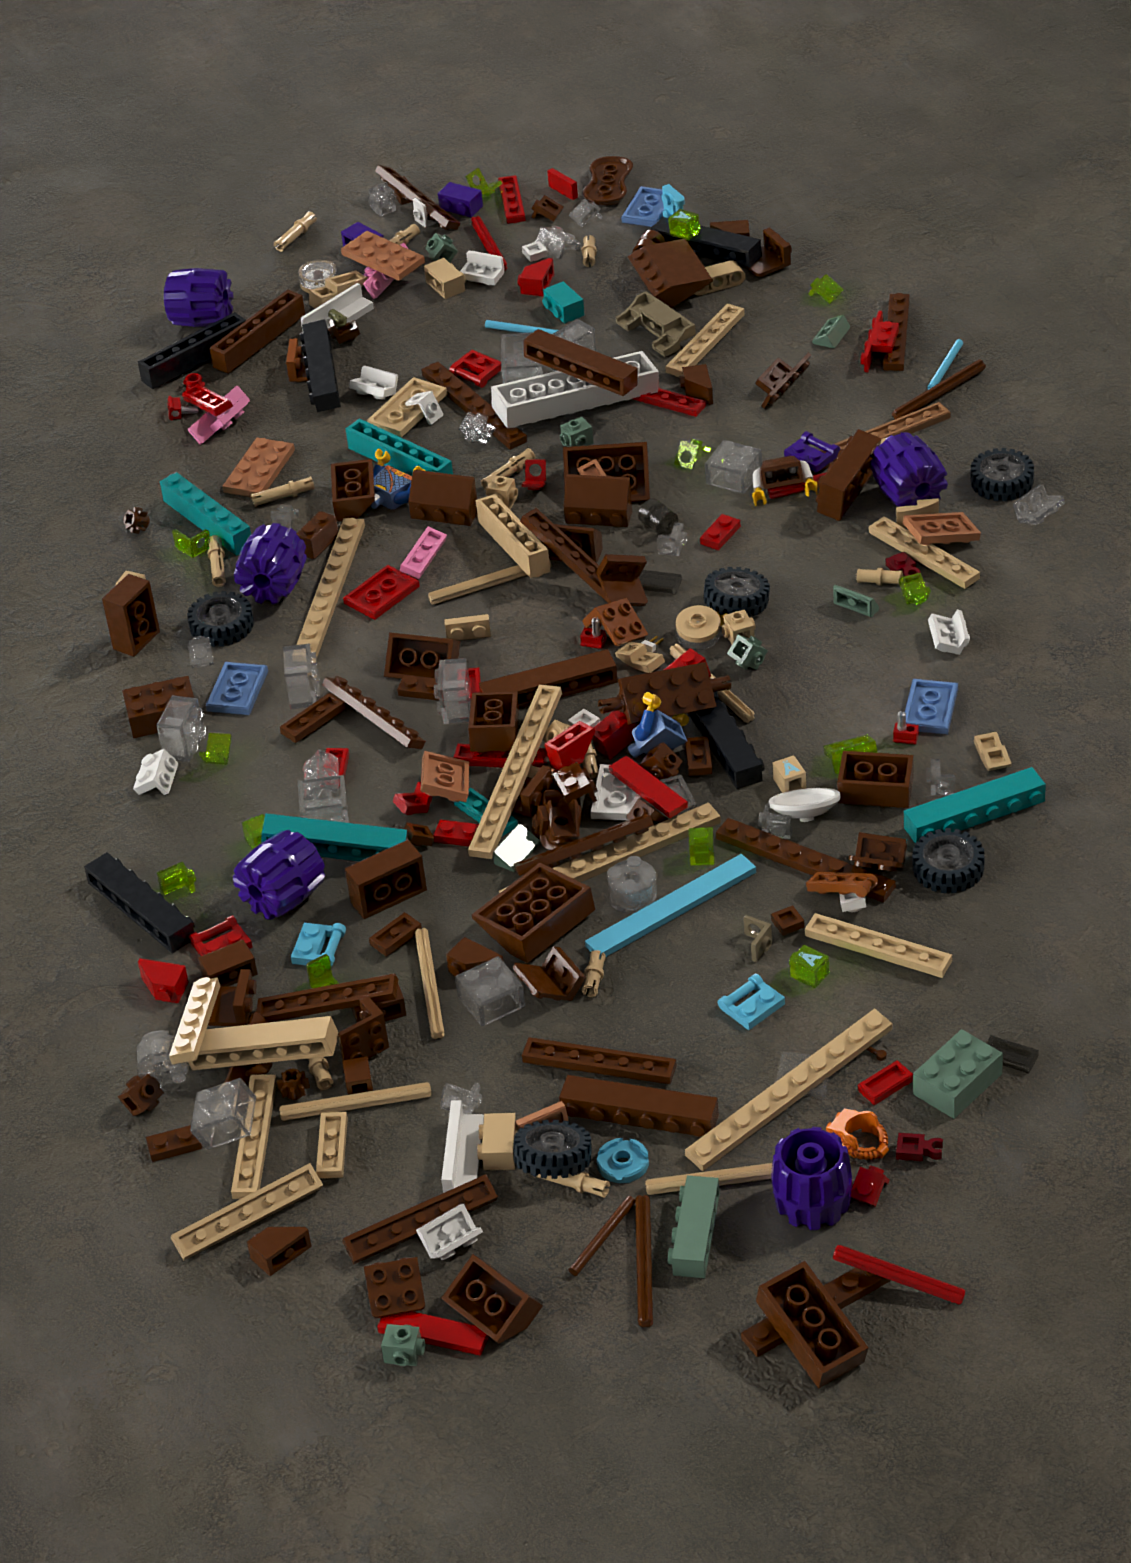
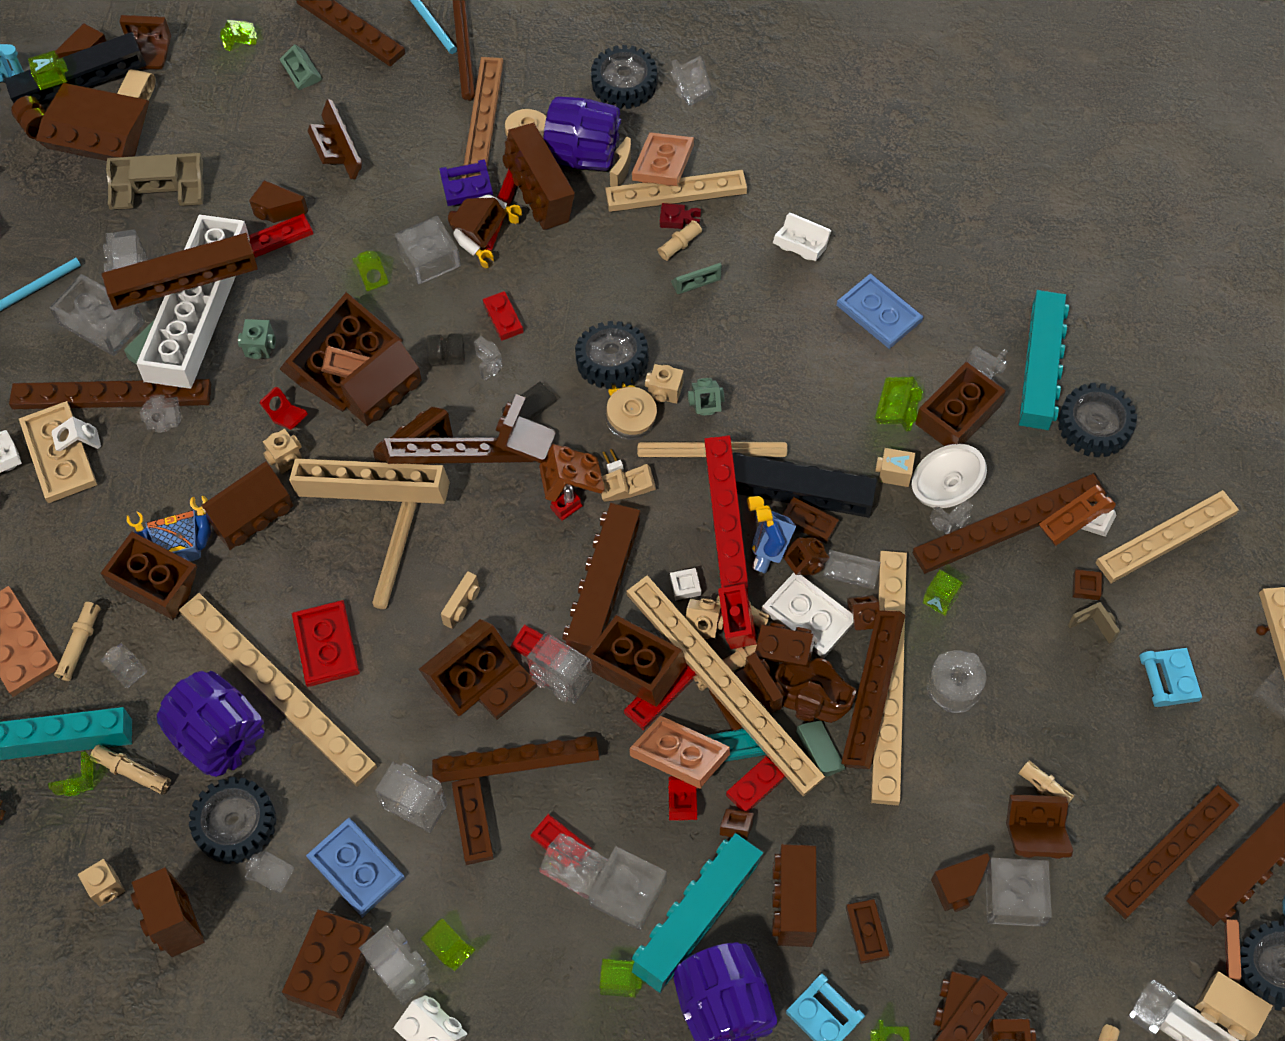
camera: 60 degrees left, 20 degrees up
(318, 533) = (186, 647): reddish brown brick -> none
(404, 455) = (148, 497): teal brick -> none
(423, 552) = (305, 571): bright pink plate -> none
(429, 983) = (958, 940): tan axle -> none
(478, 363) = (58, 351): red plate -> none
(514, 465) = (245, 416): tan pin -> none
(535, 911) = (935, 786): reddish brown slope -> none
(563, 302) = (37, 229): teal brick -> none
(648, 786) = (832, 586): red tile -> none
(671, 906) = (997, 664): medium azure tile -> none
(679, 689) = (745, 488): reddish brown plate -> none
(705, 339) = (216, 161): tan plate -> none
(809, 966) = (1161, 604): clear neon green brick -> none
(880, 339) = (357, 40): red bracket -> none
(881, 850) = (1058, 467): reddish brown bracket -> none
(905, 732) = (904, 349): red piece -> none
(914, 589) = (722, 227): clear neon green bracket -> none
(992, 751) = (975, 306): tan slope -> none

